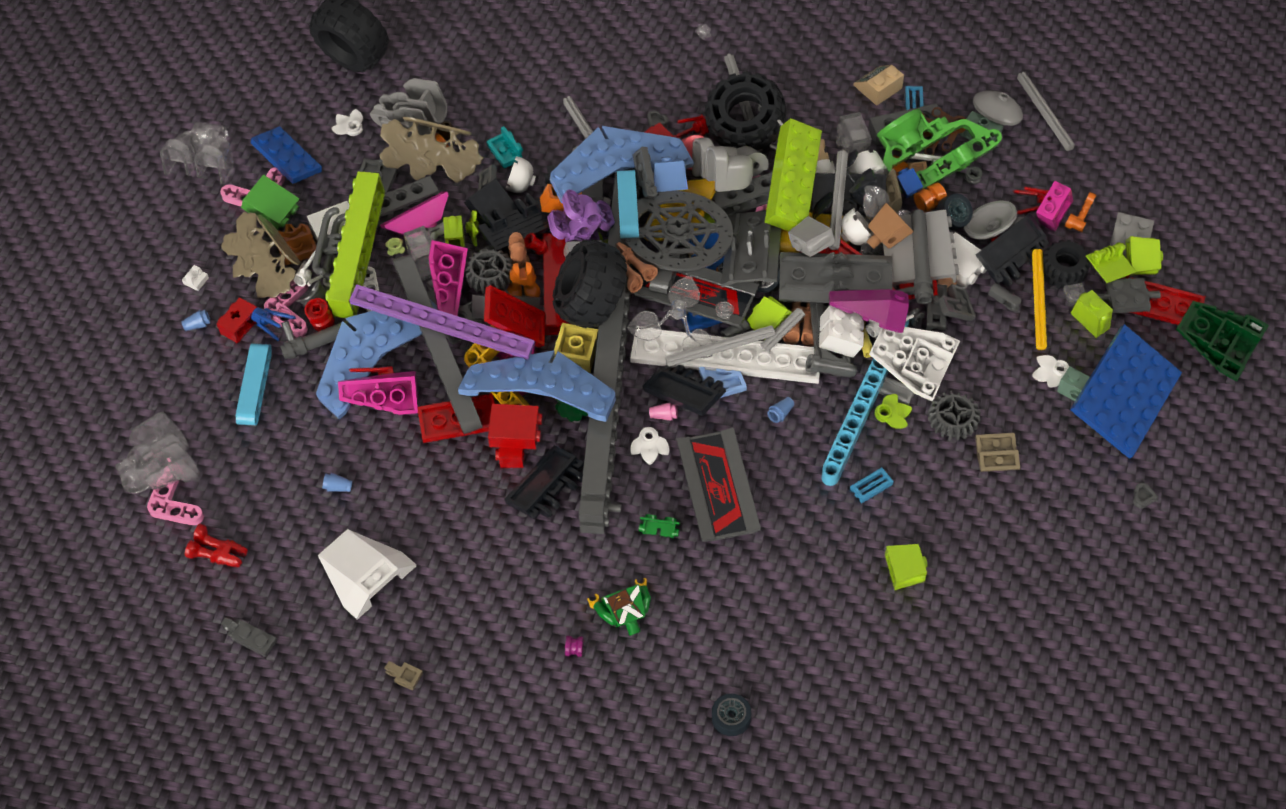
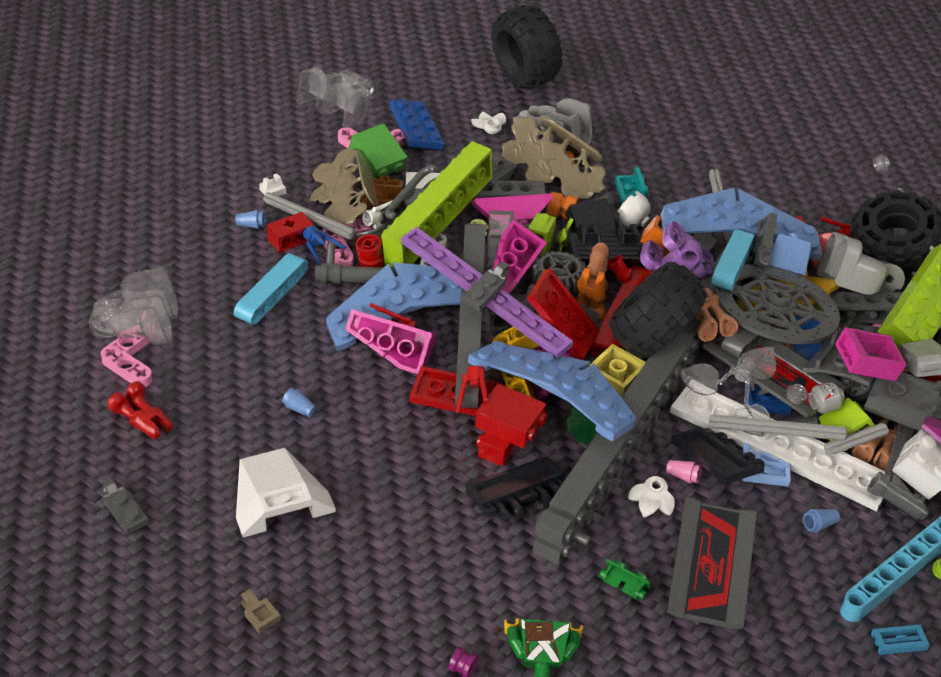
camera: 20 degrees right, 15 degrees down
(248, 296) = (314, 217): none -> light grey axle
(443, 320) = (486, 287): none -> dark grey hinge
(456, 194) = (558, 204): none -> orange wheel
(473, 406) = (476, 378): none -> red plant
(748, 304) = (826, 397): none -> light grey head
(759, 264) = (854, 345): none -> dark pink window

